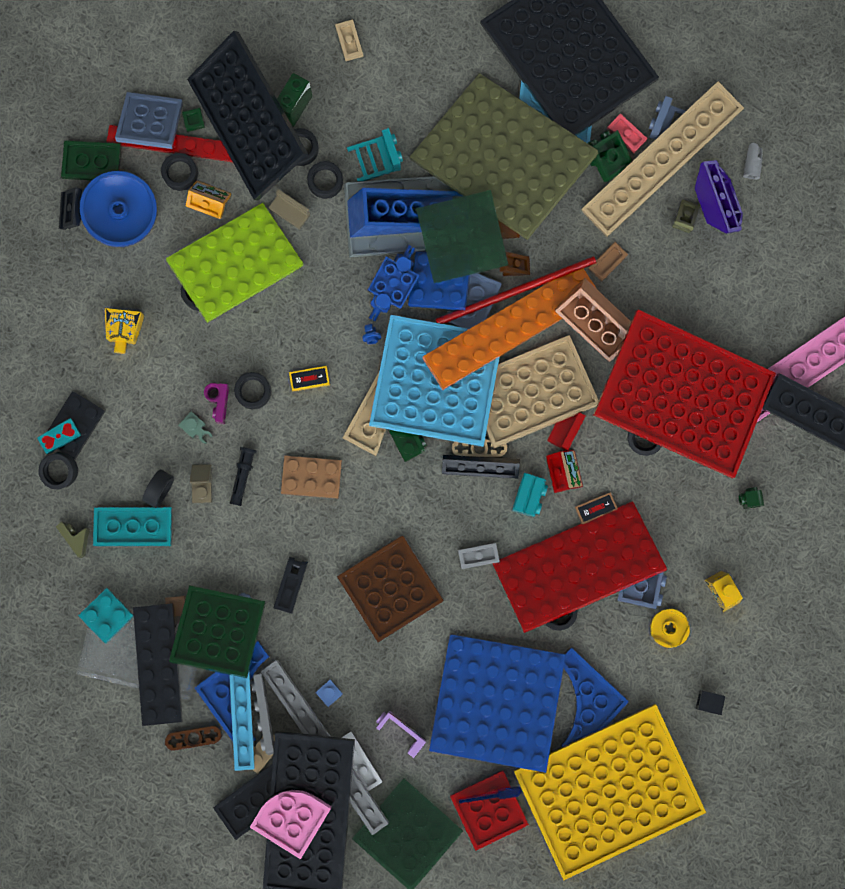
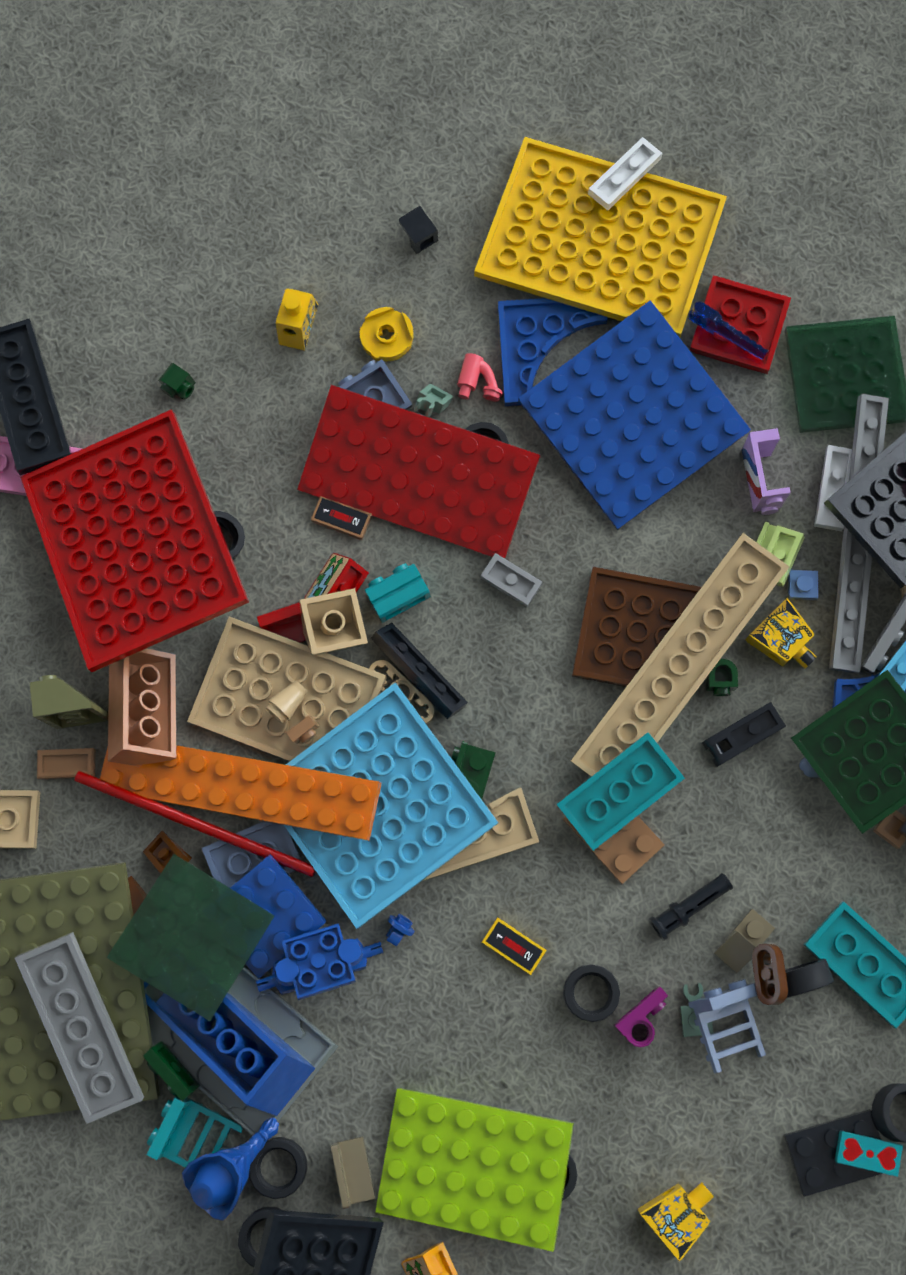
camera: 130 degrees left, 5 degrees down
(175, 473) = (768, 976): none -> reddish brown plate
(186, 441) = (720, 1004): none -> sand blue plate
(314, 654) = (784, 636): none -> torso
(324, 496) = (620, 791): none -> teal plate
(326, 603) = (722, 678): none -> dark green plate
(345, 151) = (220, 1177): none -> blue hat
(353, 589) = (685, 653): none -> tan plate
(358, 695) = (781, 543): none -> yellowish green plate
(414, 173) = (164, 1063): none -> dark green plate
(474, 151) = (79, 1028): none -> light grey plate
(505, 381) = (303, 731): none -> medium nougat plate
(528, 387) = (286, 702): none -> tan cone
(544, 447) = (332, 622): none -> tan slope
(603, 644) = (467, 382): none -> coral plant
(609, 613) = (432, 400): none -> sand green plate
(629, 838) = (625, 173): none -> white plate
(634, 285) = (62, 704): none -> olive slope

